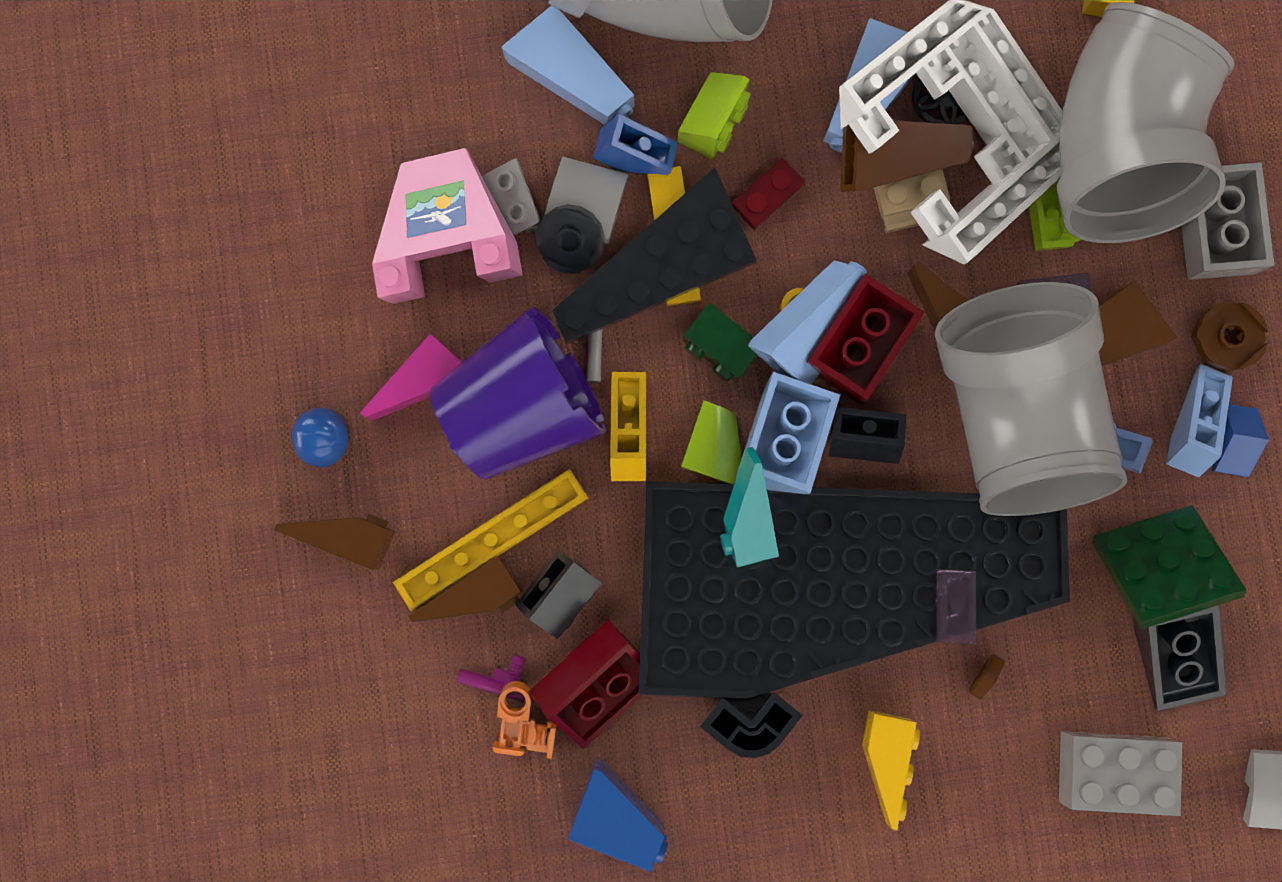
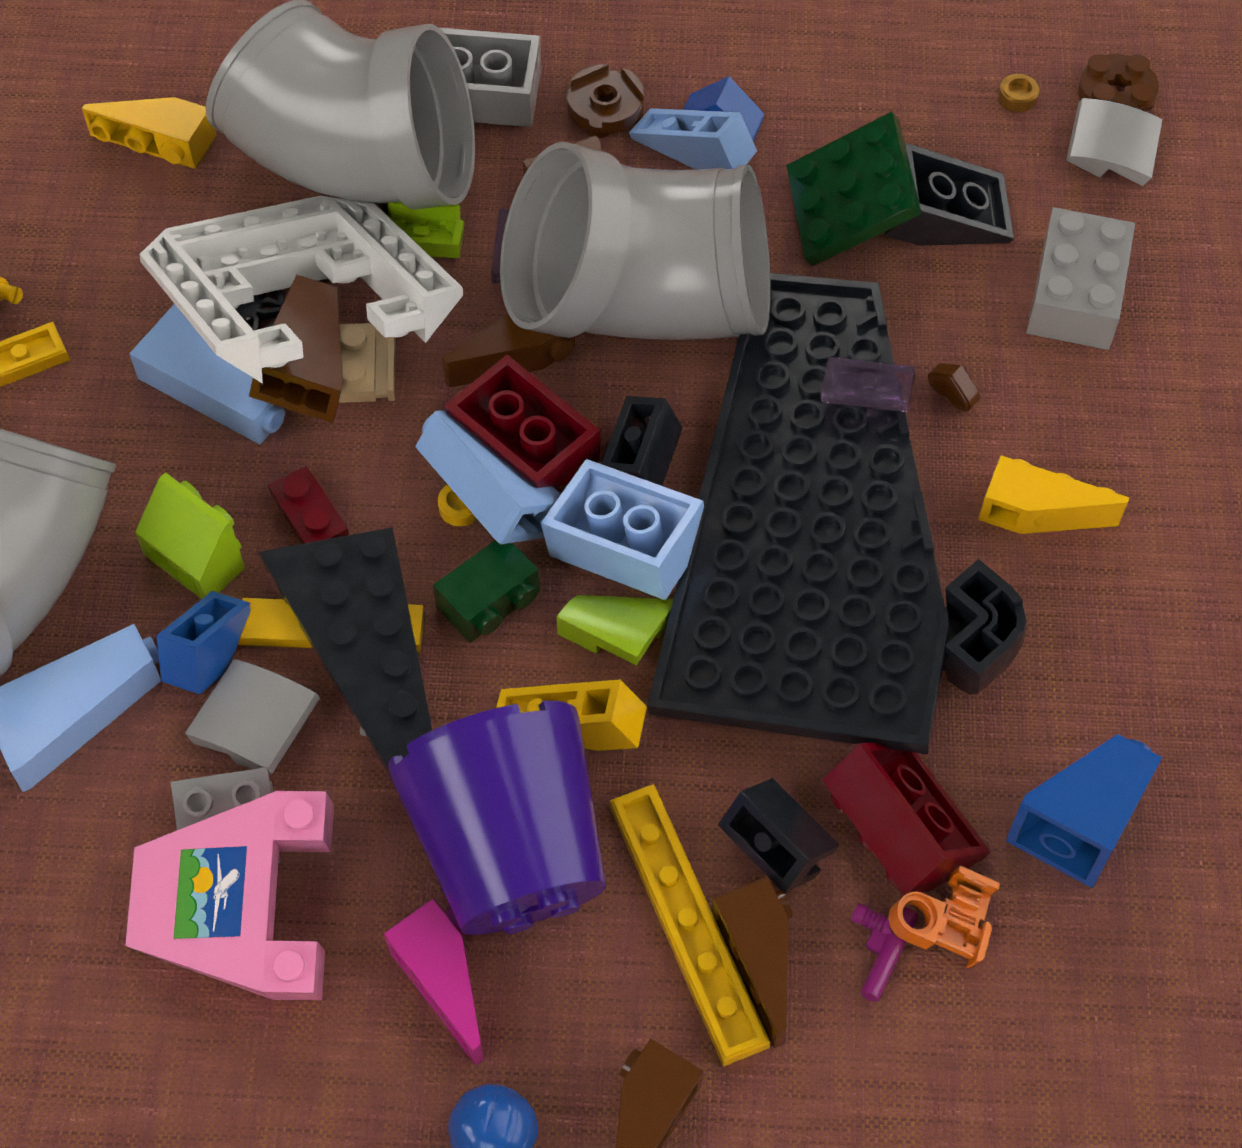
camera: 80 degrees left, 25 degrees down
(570, 239) = (300, 739): black tile -> none
(748, 515) = (716, 568): teal slope -> none

